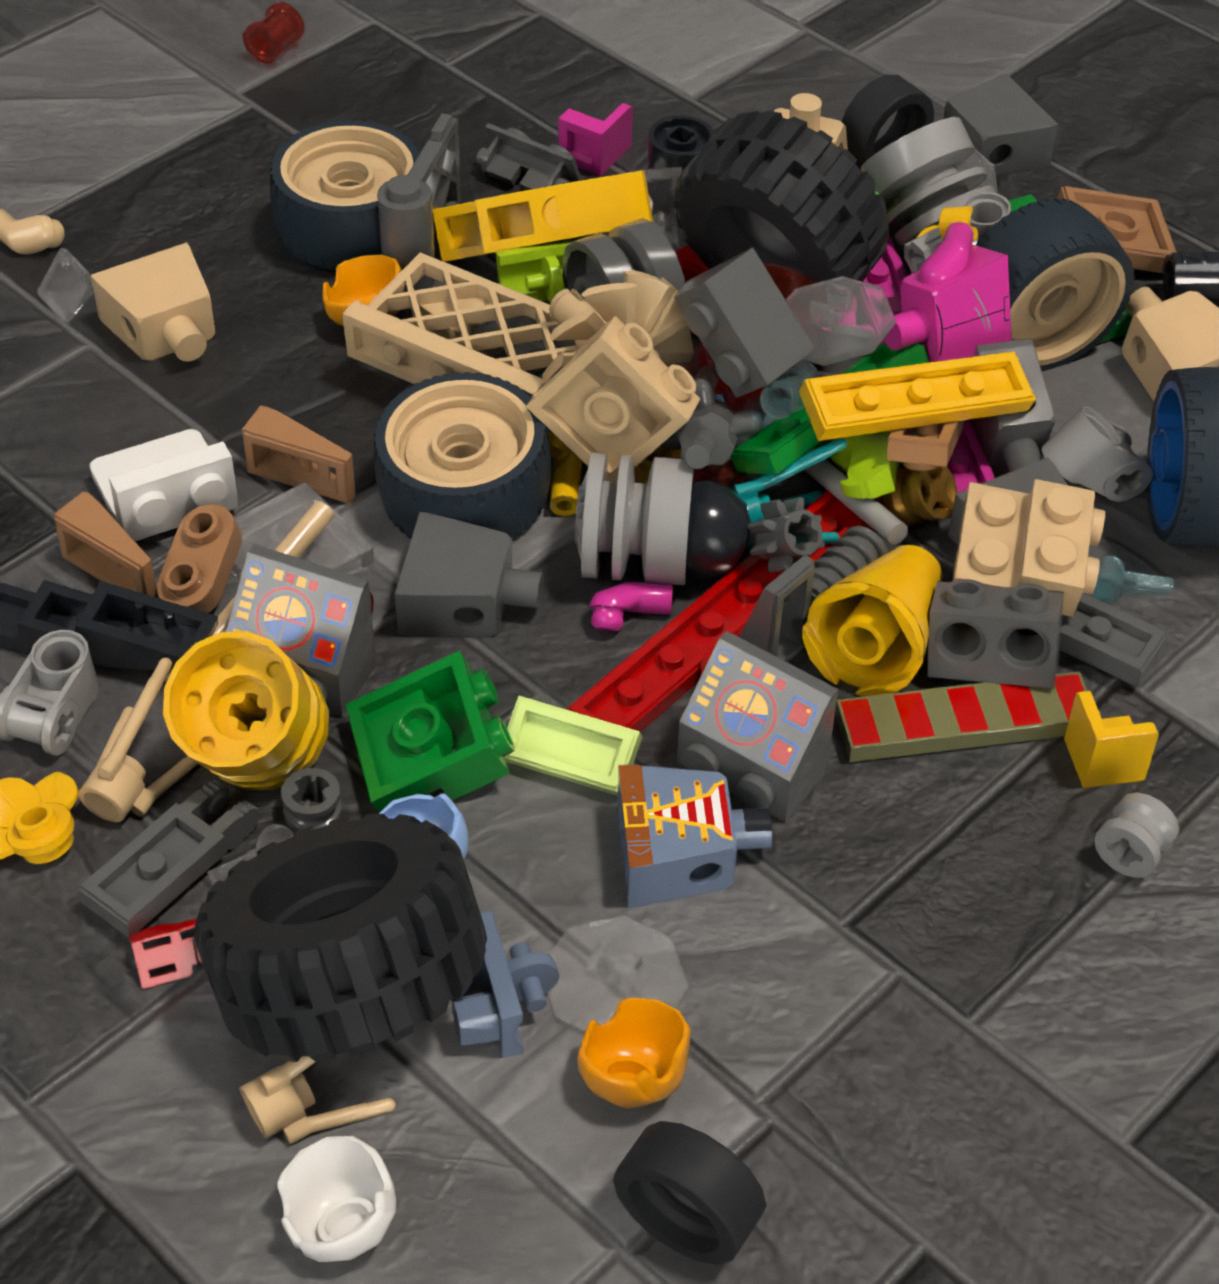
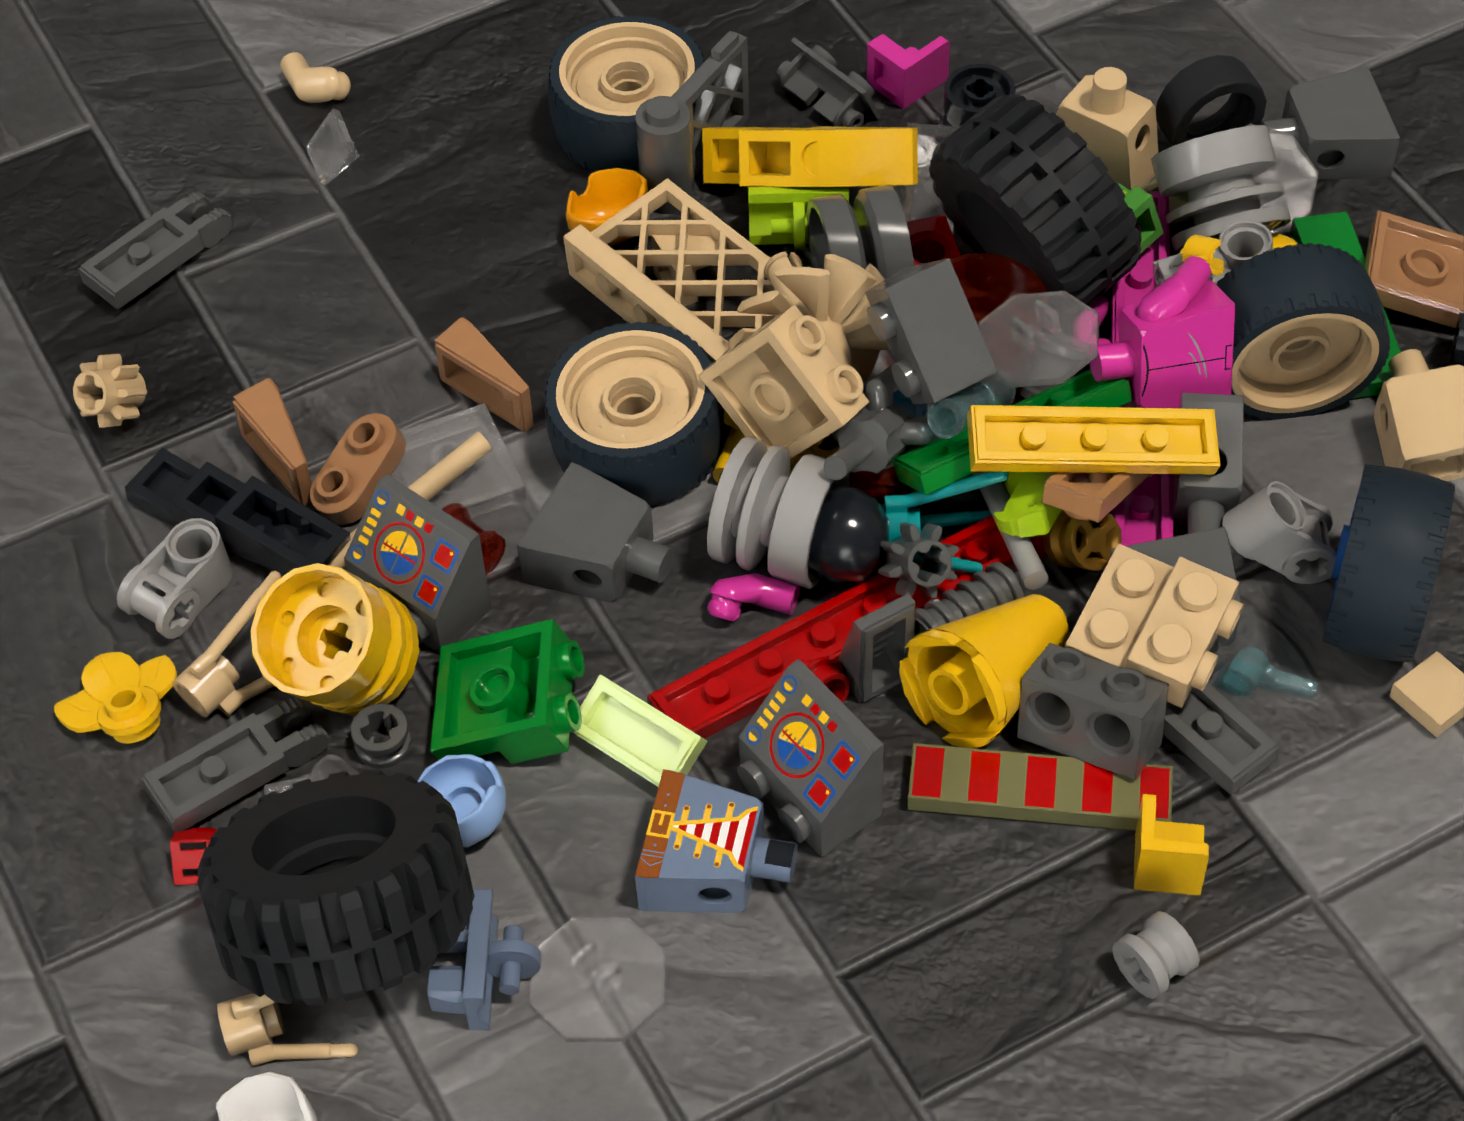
camera: 20 degrees right, 5 degrees up
(157, 304) = (410, 184): tan torso -> none
(163, 480) = (351, 377): white bracket -> none
(636, 1053) = (579, 1061): light orange hair -> none

